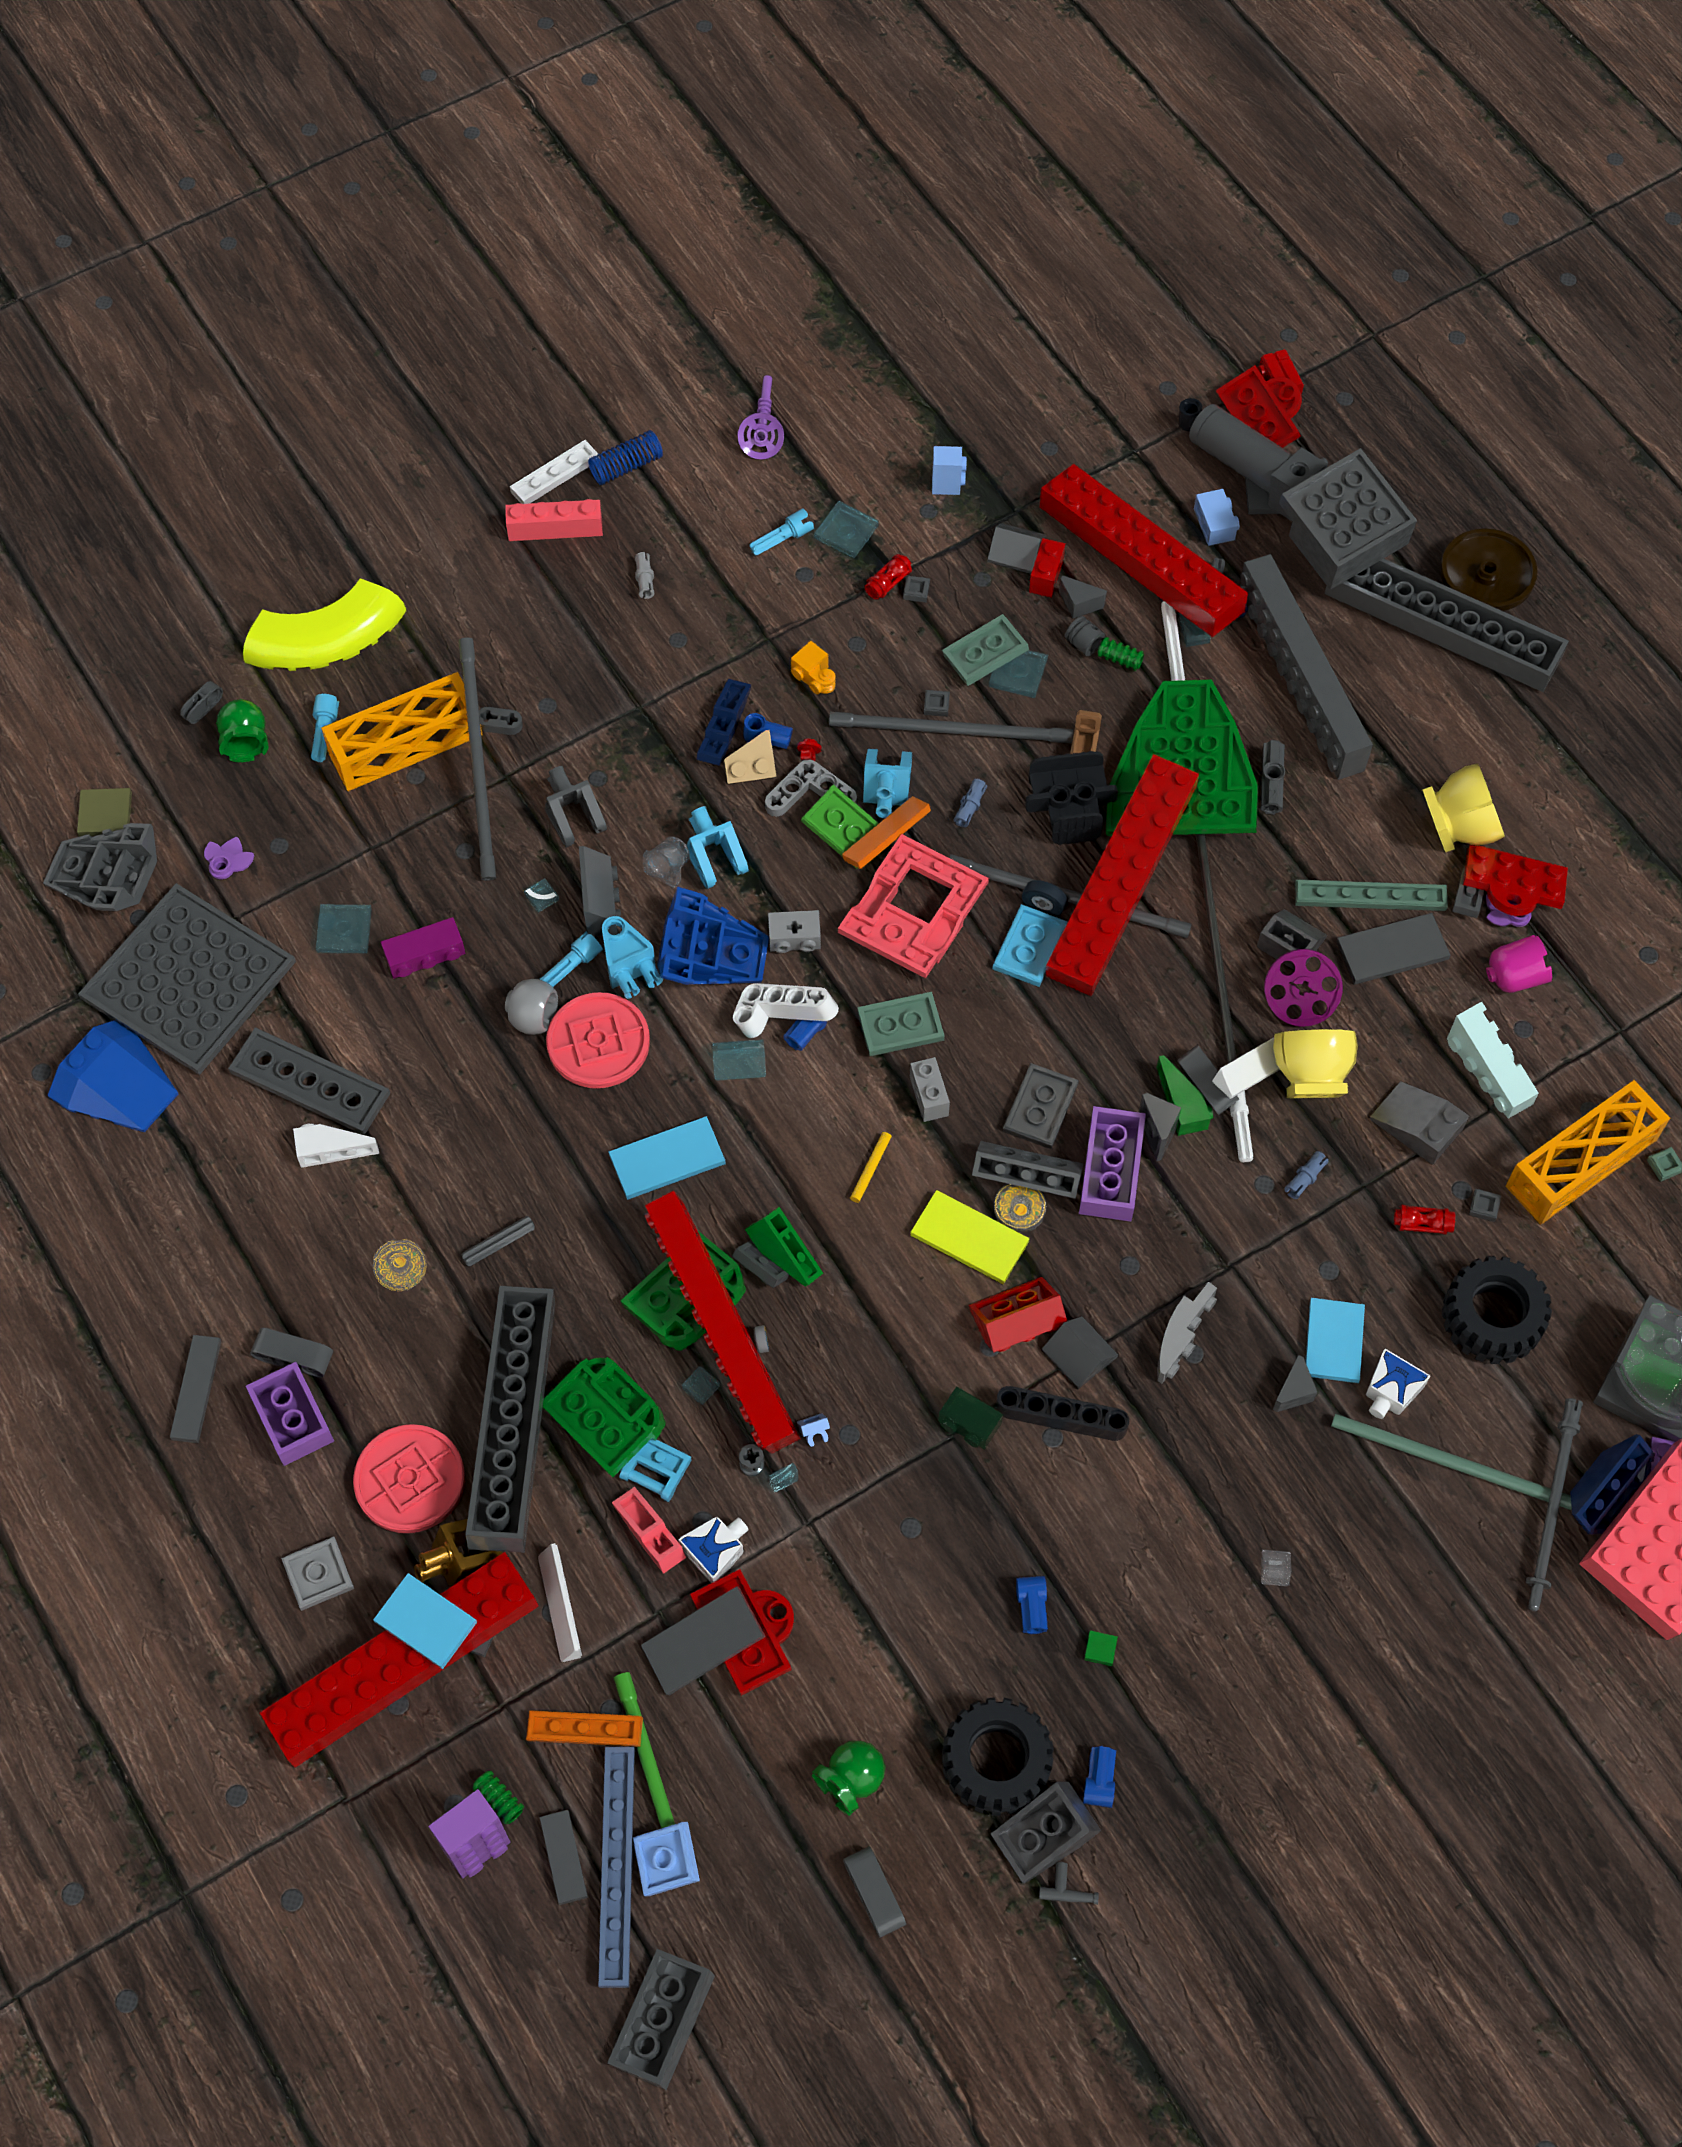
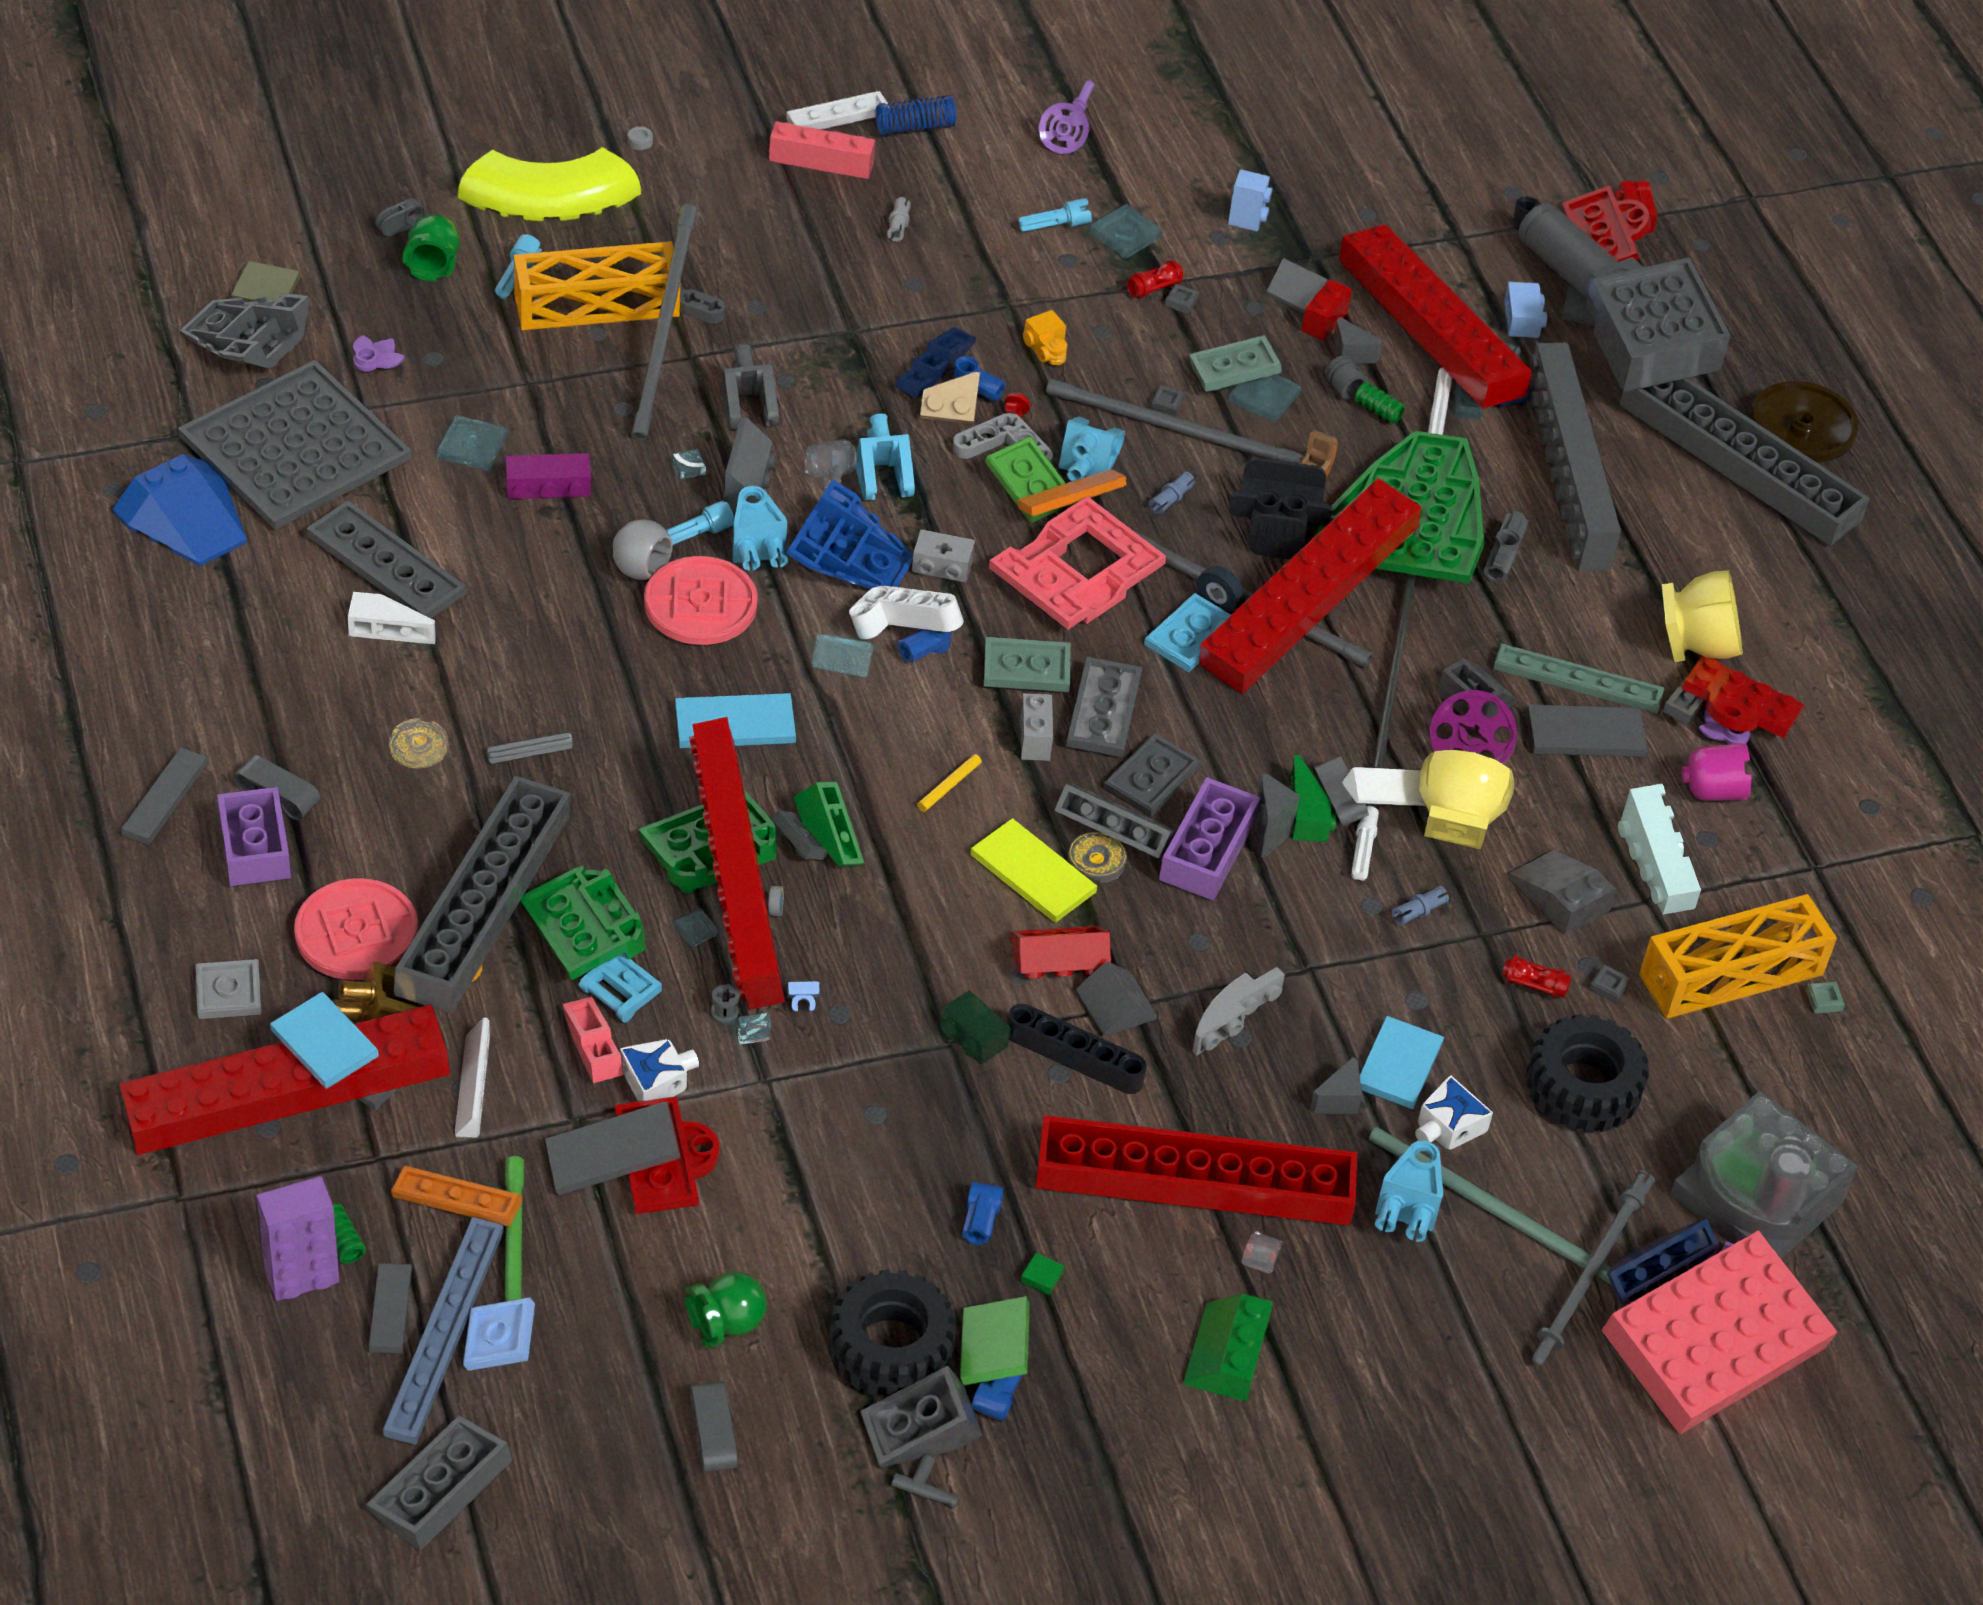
camera: 10 degrees right, 15 degrees down
(387, 550) = (640, 138): none -> light grey tile
(980, 1048) = (1104, 707): none -> dark grey piece
(1085, 1735) = (995, 1340): none -> bright green tile
(1200, 1509) = (1197, 1170): none -> red brick
(1277, 1674) = (1229, 1345): none -> green slope
(1388, 1477) = (1412, 1192): none -> medium azure piece

